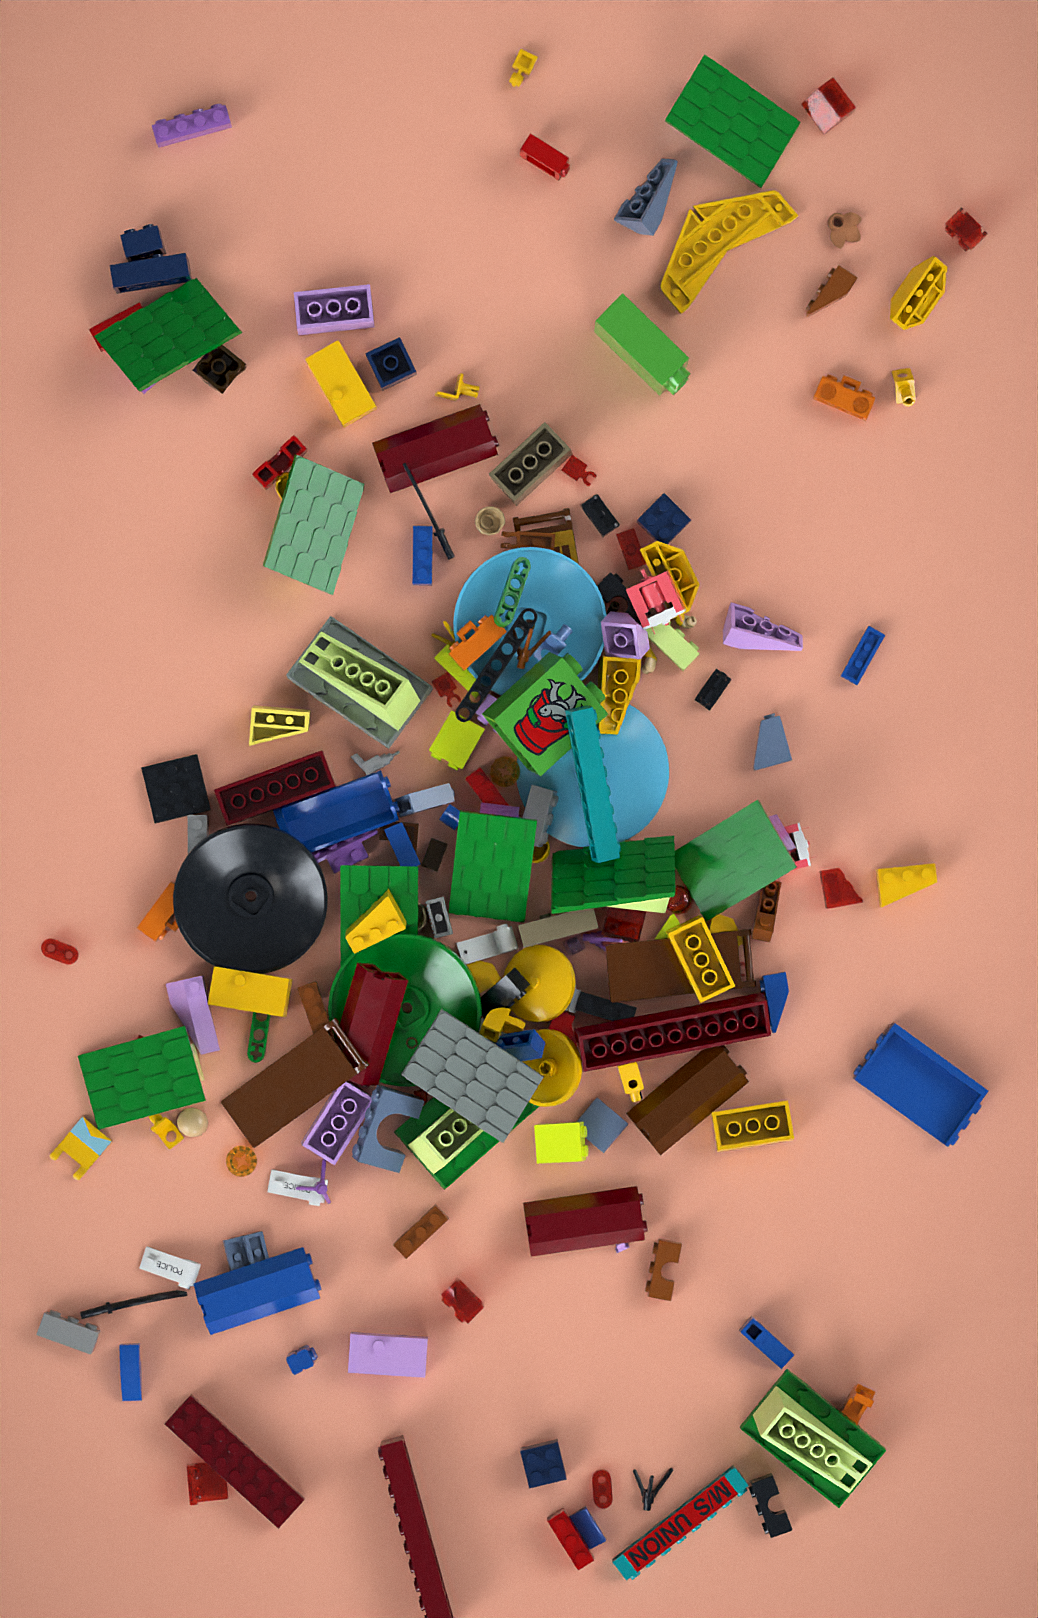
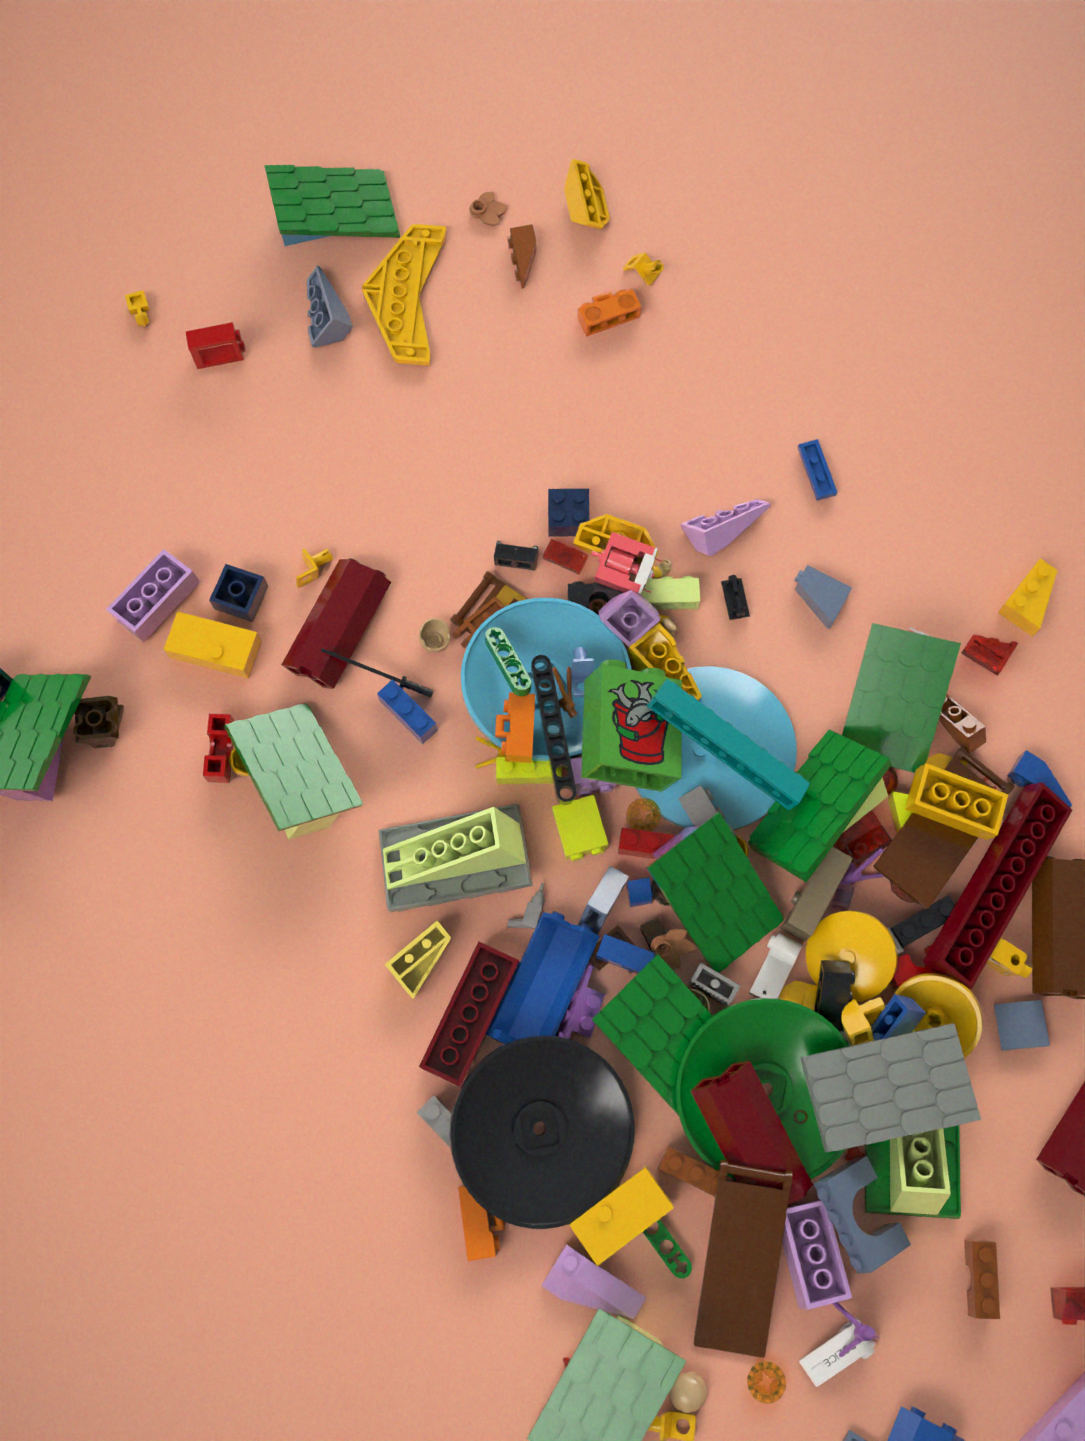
camera: 45 degrees left, 15 degrees down
(60, 951) = (420, 1356): clear red plate -> none
(176, 788) = (385, 1101): black plate -> none
(376, 924) = (672, 1041): yellow wedge -> none
(435, 869) = (674, 946): none -> nougat plate
(445, 686) = (528, 795): clear red plate -> none
(530, 463) = (423, 565): dark tan brick -> none
(560, 1142) = (1010, 1072): neon yellow brick -> none
(576, 469) = (462, 539): clear red plate -> none
(643, 346) = (423, 396): bright green brick -> none
(828, 105) = (392, 140): clear red slope -> none
(965, 229) = (574, 131): clear red brick -> none

